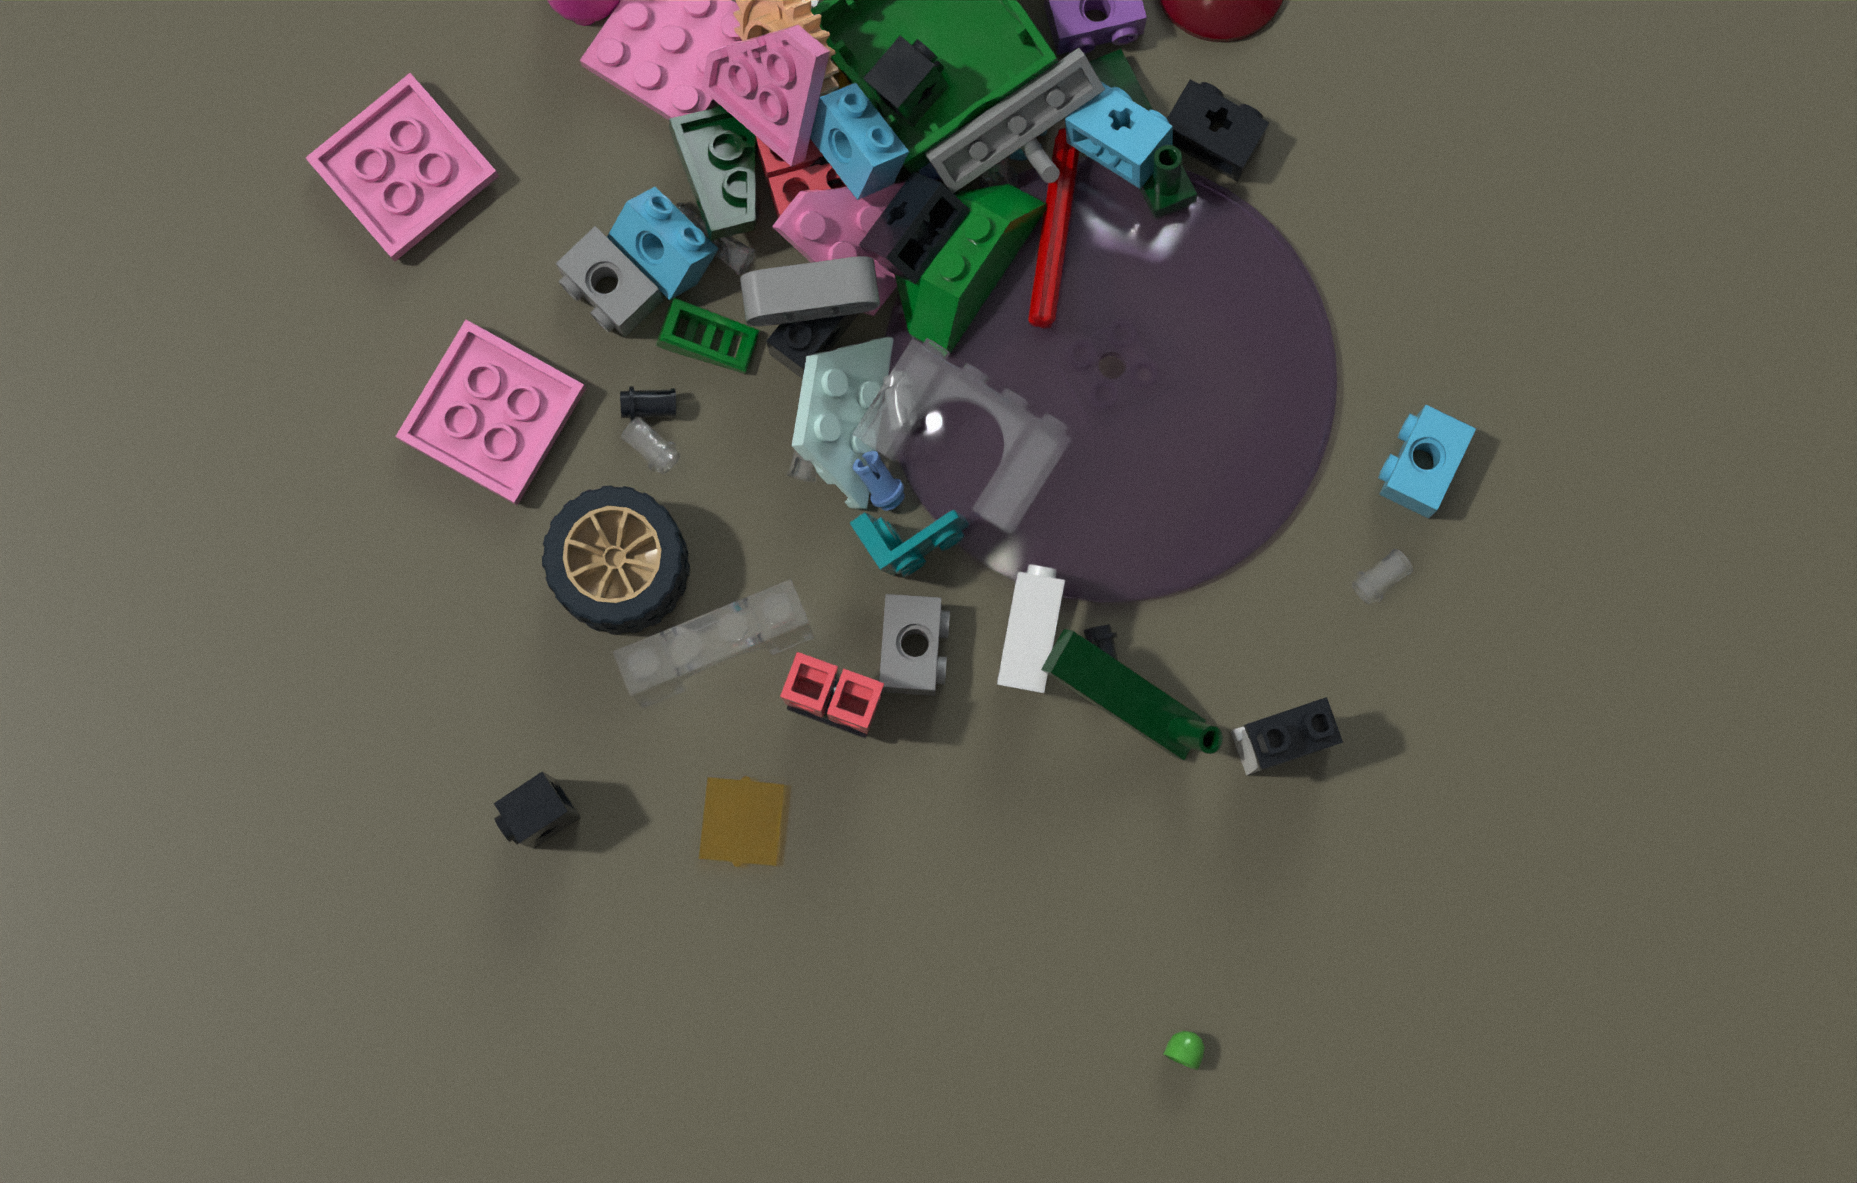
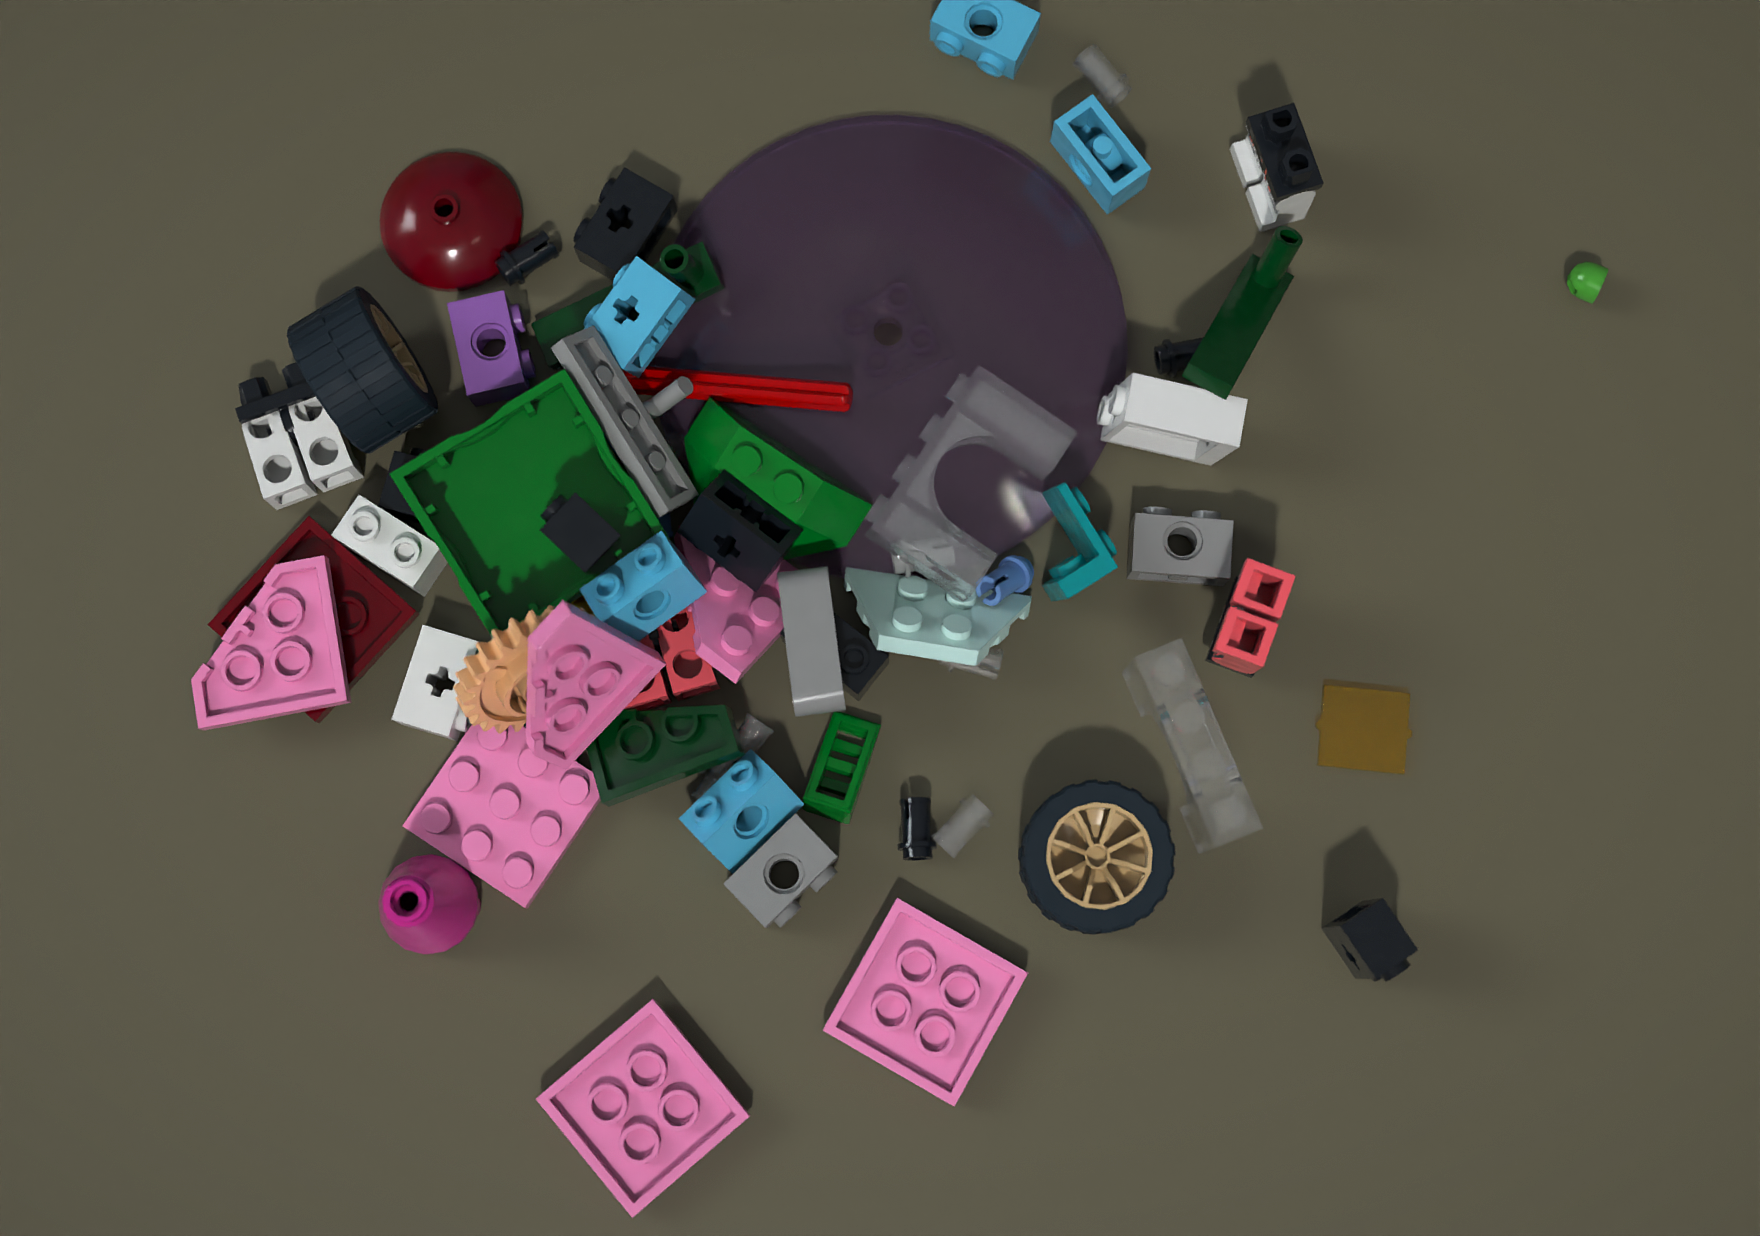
camera: 90 degrees left, 0 degrees up
(1182, 40) = (525, 258): none -> black pin
(1297, 568) = (1100, 154): none -> medium azure brick

